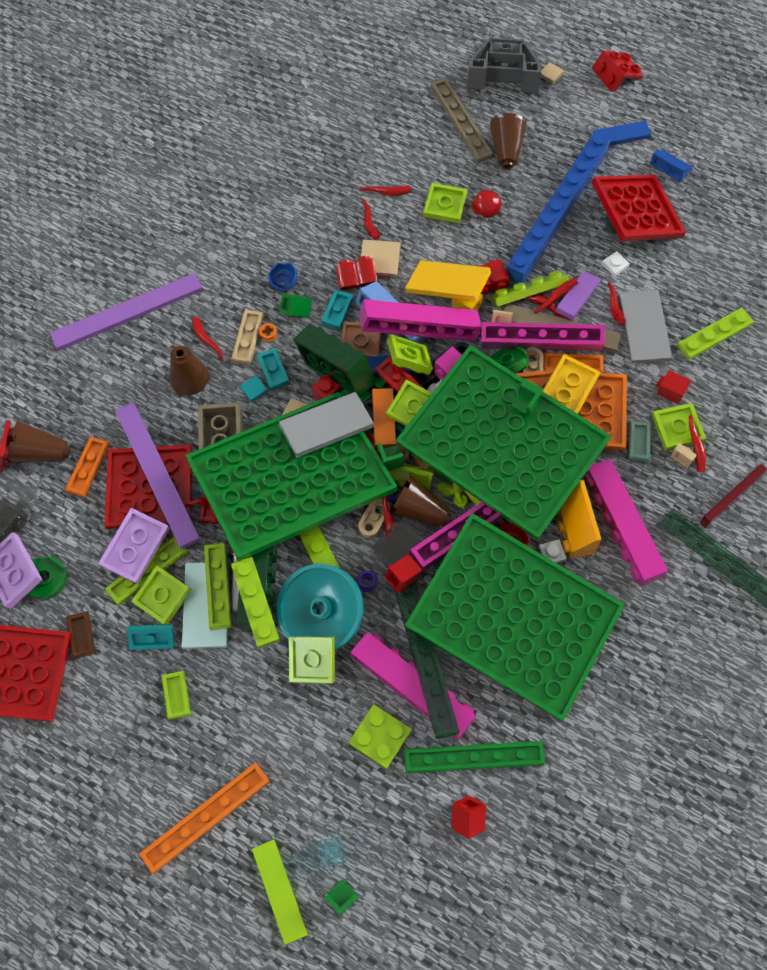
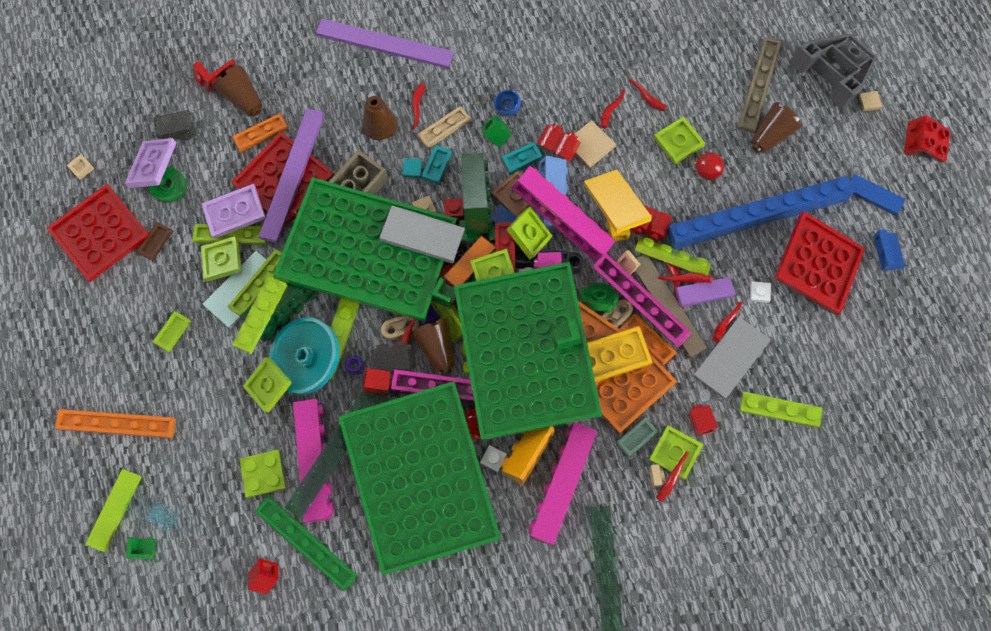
camera: 45 degrees right, 5 degrees up
(150, 637) = (190, 280): teal plate -> none
(262, 331) = (461, 140): orange bush -> none
(732, 496) = (661, 537): dark red tile -> none

